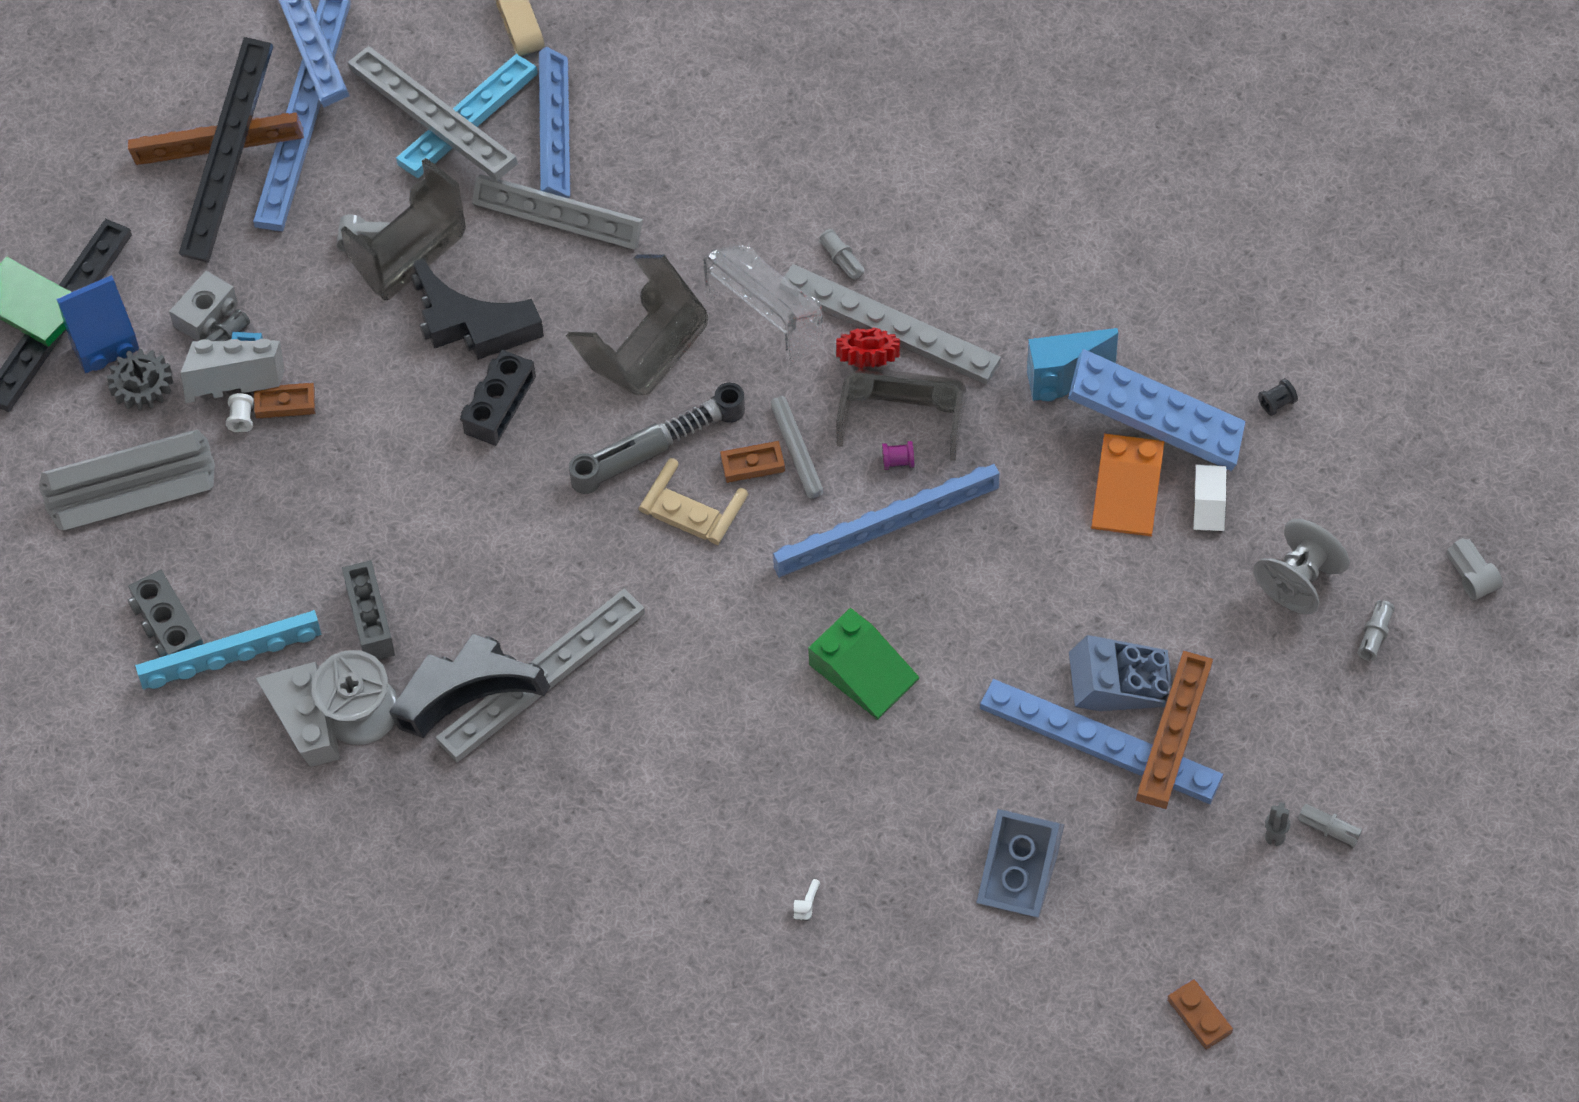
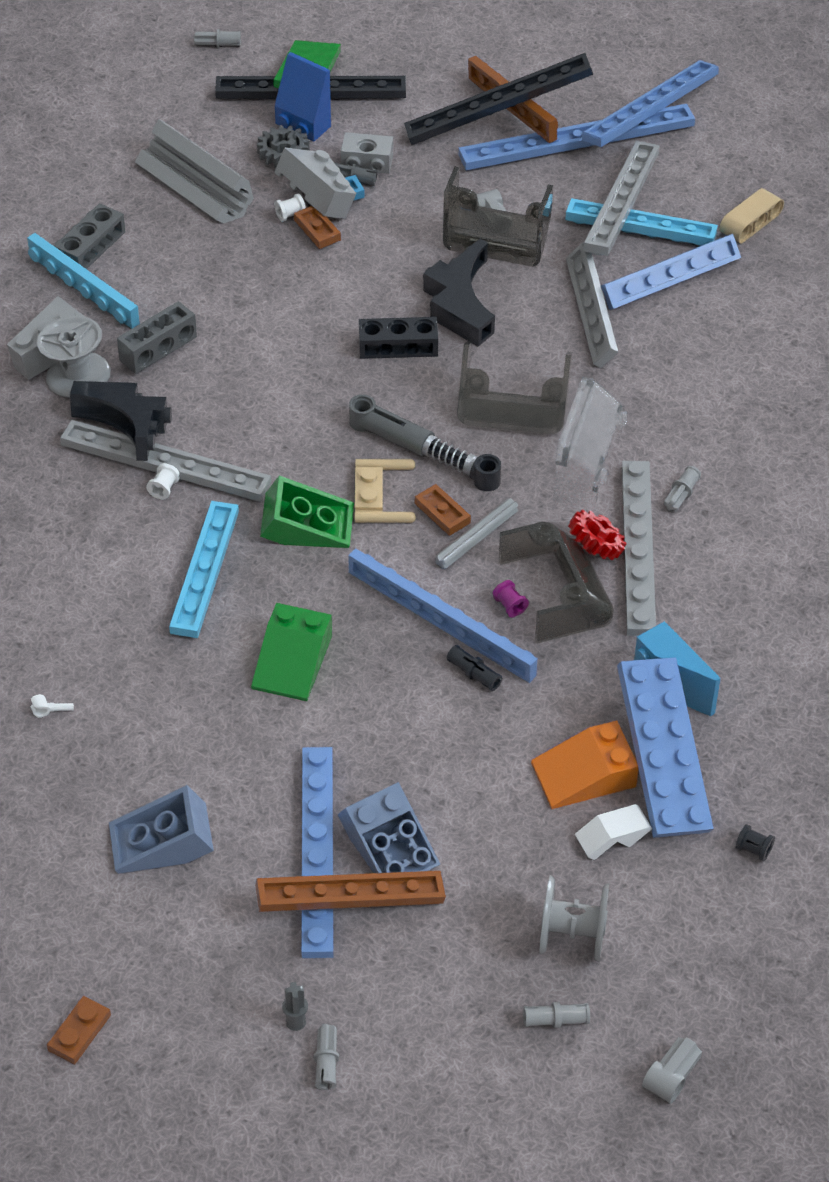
camera: 60 degrees right, 10 degrees down
(570, 687) = (163, 481): none -> white bush
(694, 581) = (305, 516): none -> green slope
(709, 697) = (204, 569): none -> medium azure plate
(963, 522) = (474, 668): none -> black pin

